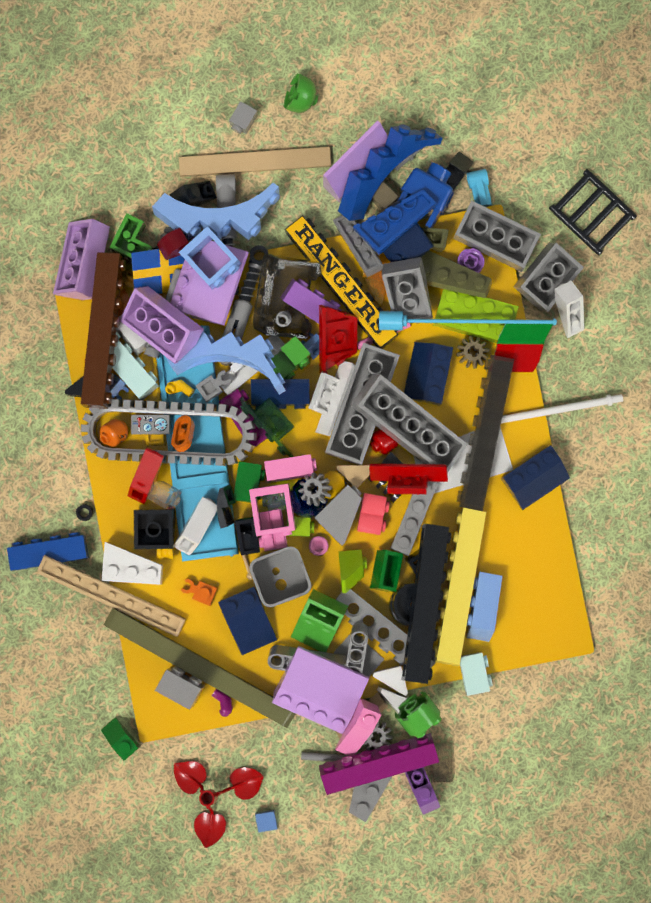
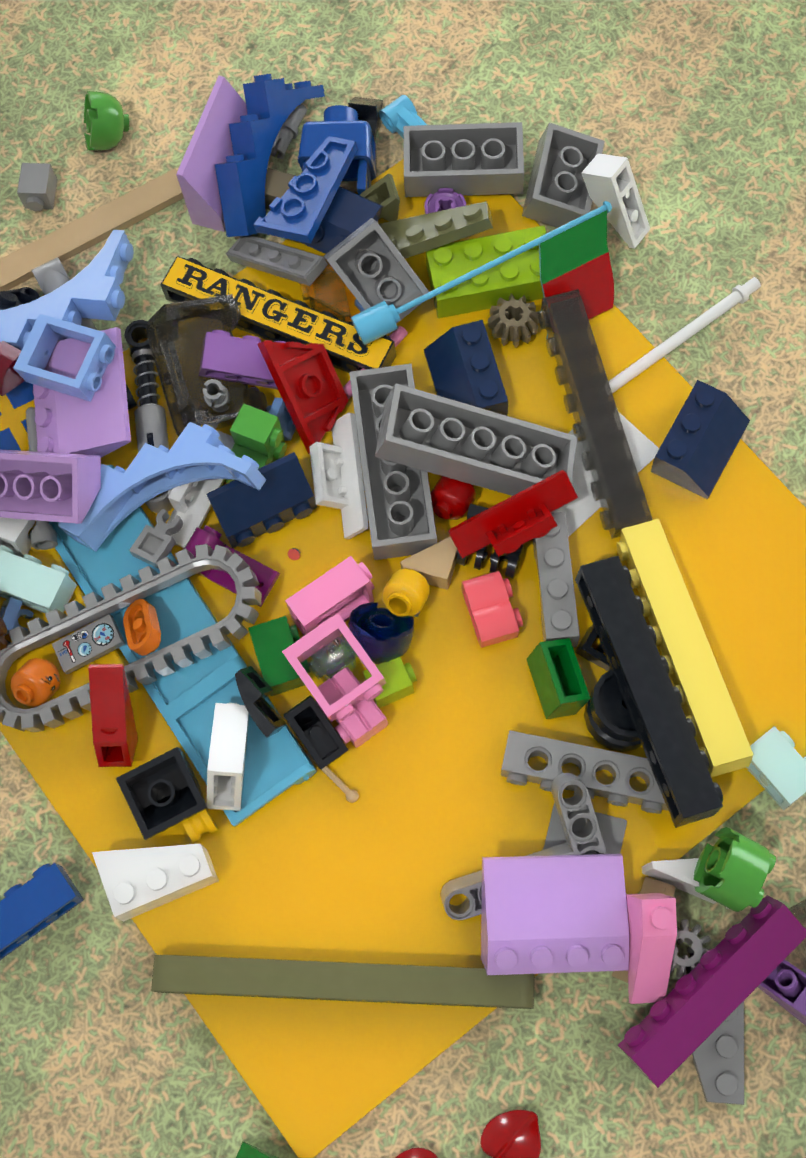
camera: 20 degrees left, 15 degrees down
(78, 512) = (36, 827): black axle -> none
(110, 595) = (141, 937): tan tile -> none
(164, 495) = (156, 735): clear brick -> none
(179, 386) = (107, 568): yellow arm -> none
(180, 687) = (322, 1026): light grey brick -> none
(202, 592) = (289, 860): orange plate -> none
(225, 702) = (411, 1019): magenta arm -> none
(247, 620) = (381, 866): dark blue slope -> none
(272, 421) = (268, 542): clear green bracket -> none
(291, 570) = (414, 750): light grey piece -> none
(307, 490) = (383, 614): light grey gear -> none
(318, 545) = (434, 698): bright pink tile -> none
(319, 621) = (495, 806): bright green slope -> none
(321, 756) = (610, 1032): light grey bar -> none
(340, 513) = (440, 629): light grey slope -> none
(351, 568) = (501, 701): lime slope -> none
(392, 678) = (659, 840): white slope -> none
(484, 606) = (739, 658): light blue wedge -> none
(570, 221) = (580, 116): black bar -> none

